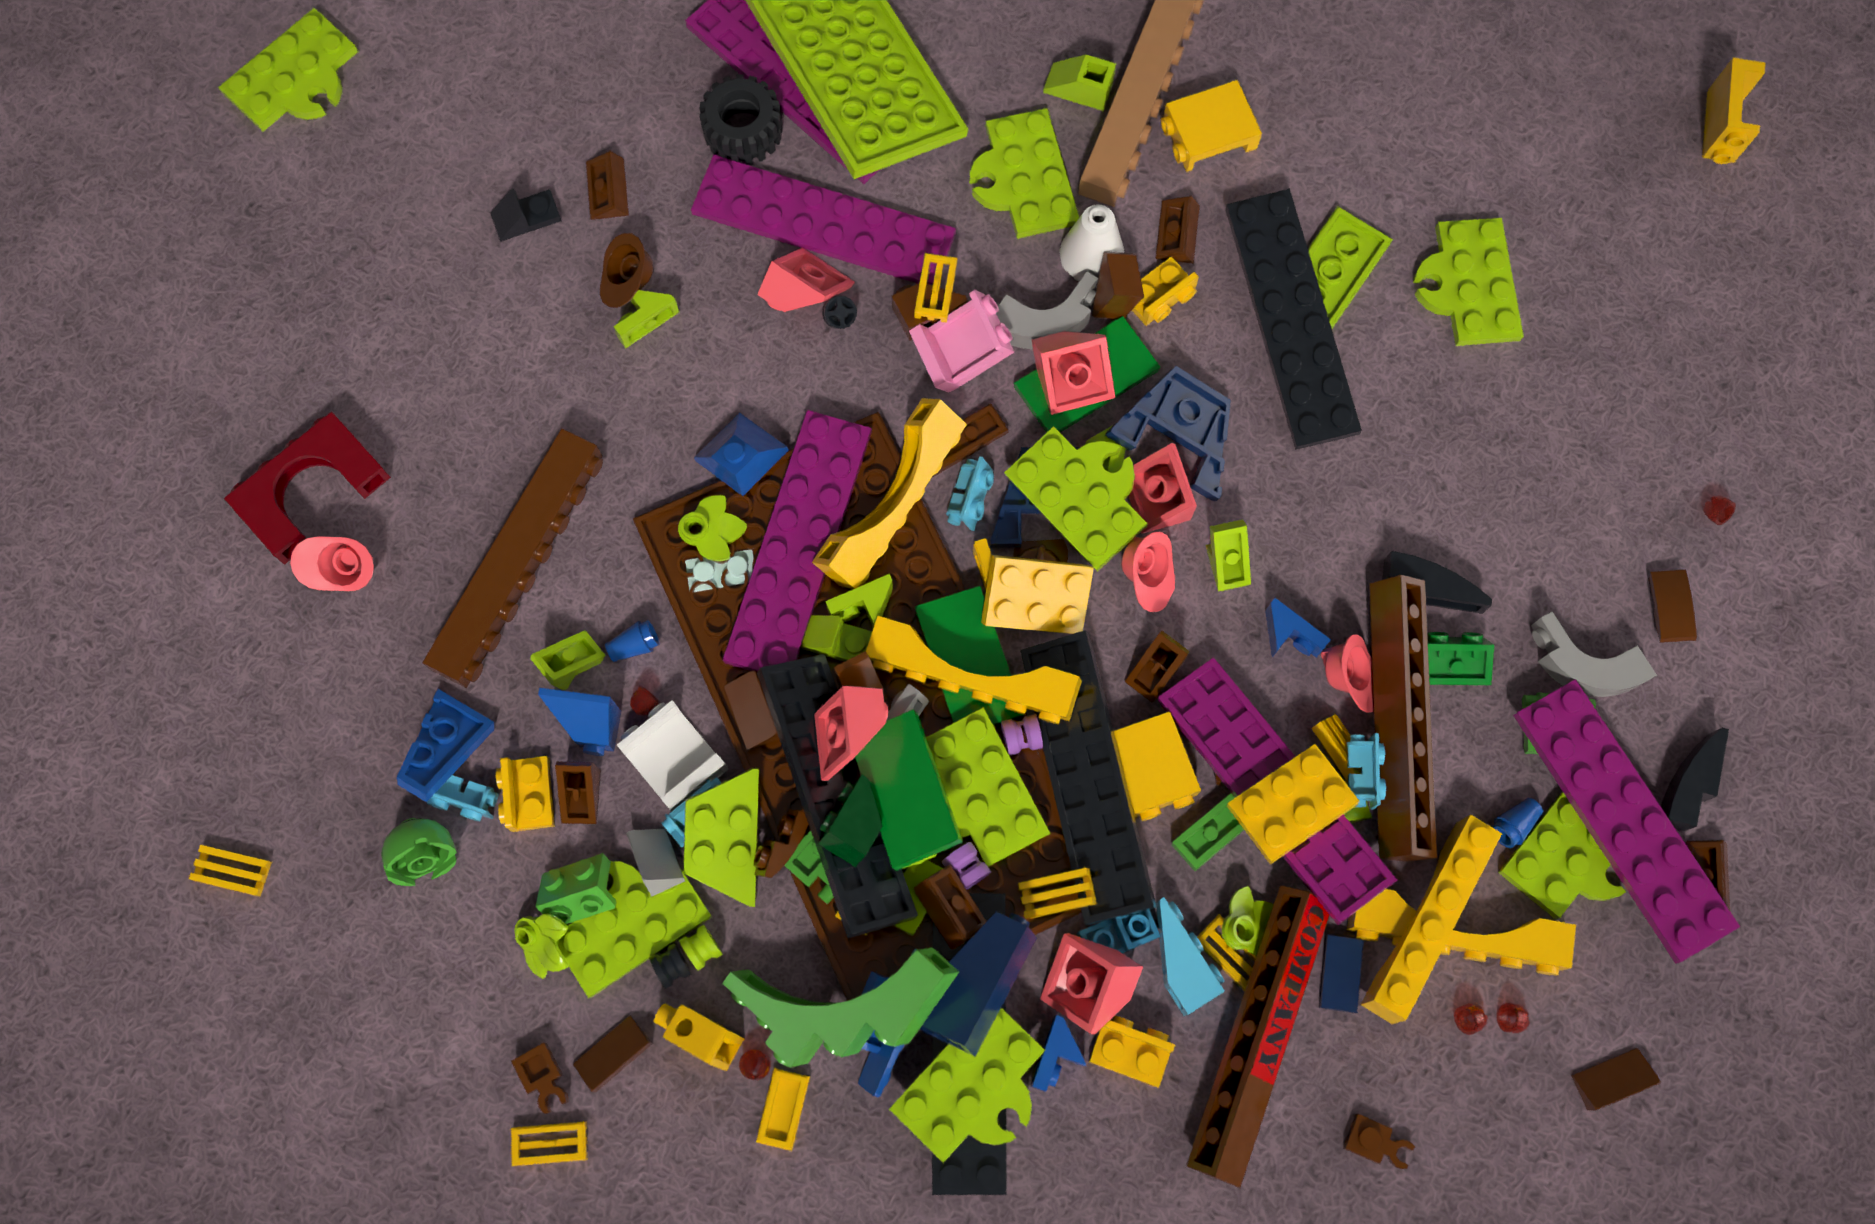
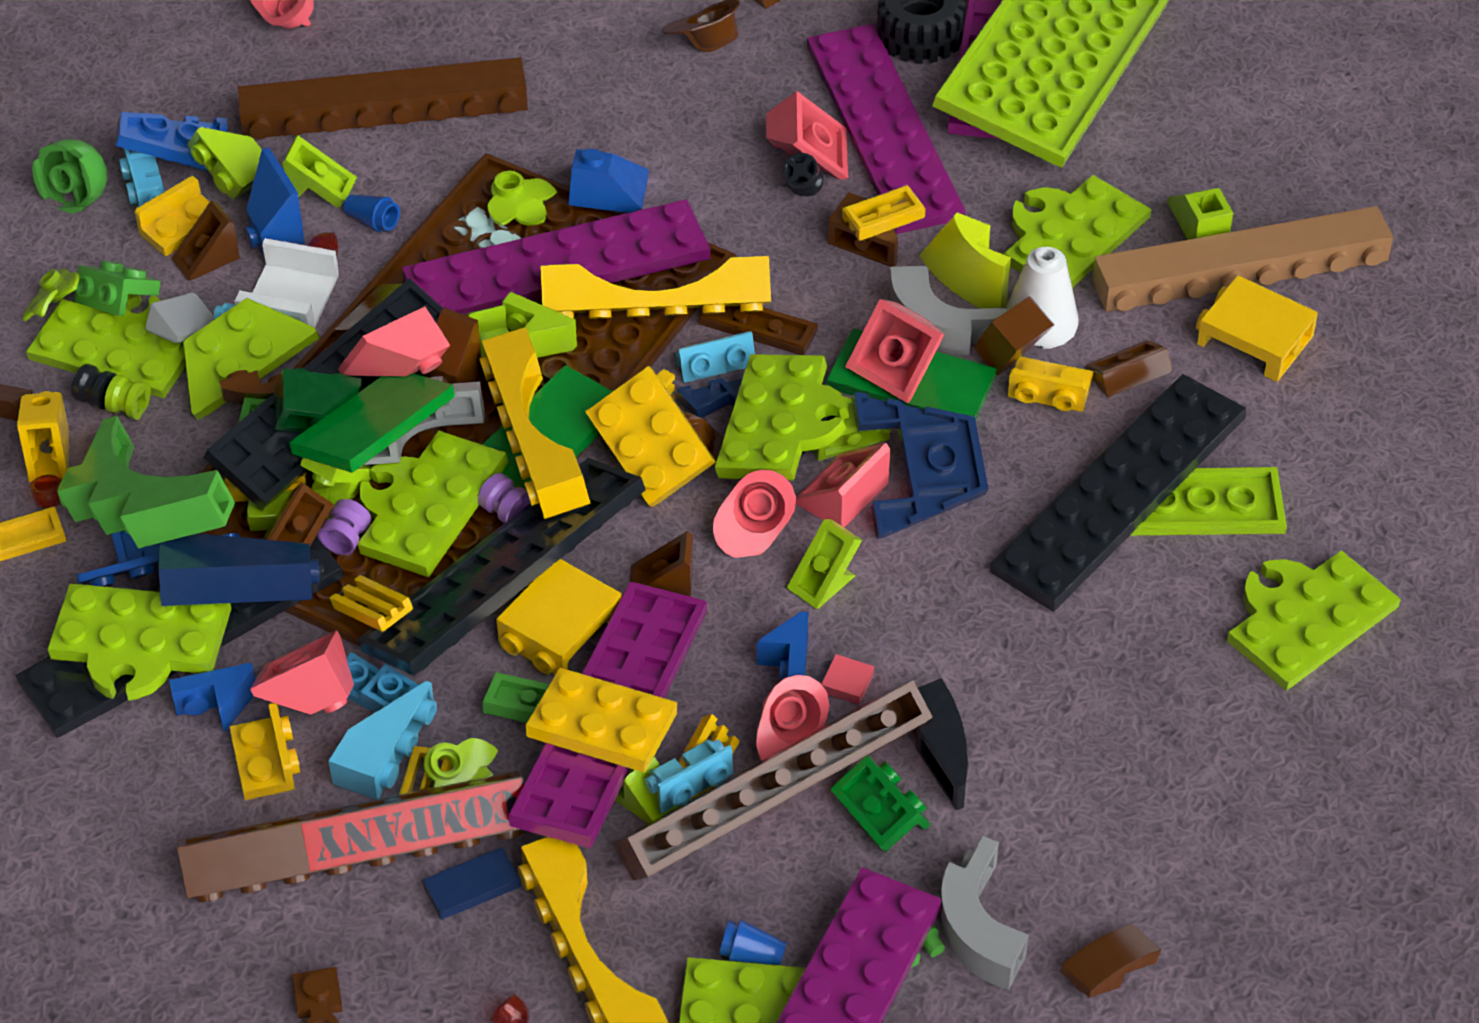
camera: 55 degrees right, 25 degrees down
(507, 715) = (228, 158): none -> lime slope
(651, 312) = (681, 62): lime slope -> none
(965, 344) = (849, 268): bright pink panel -> none
(1016, 265) = (966, 265): none -> neon yellow slope
(1330, 607) = (847, 679): none -> coral tile
(1415, 955) = (660, 906): yellow arch -> none
(1719, 509) = (1252, 948): clear red hinge -> none

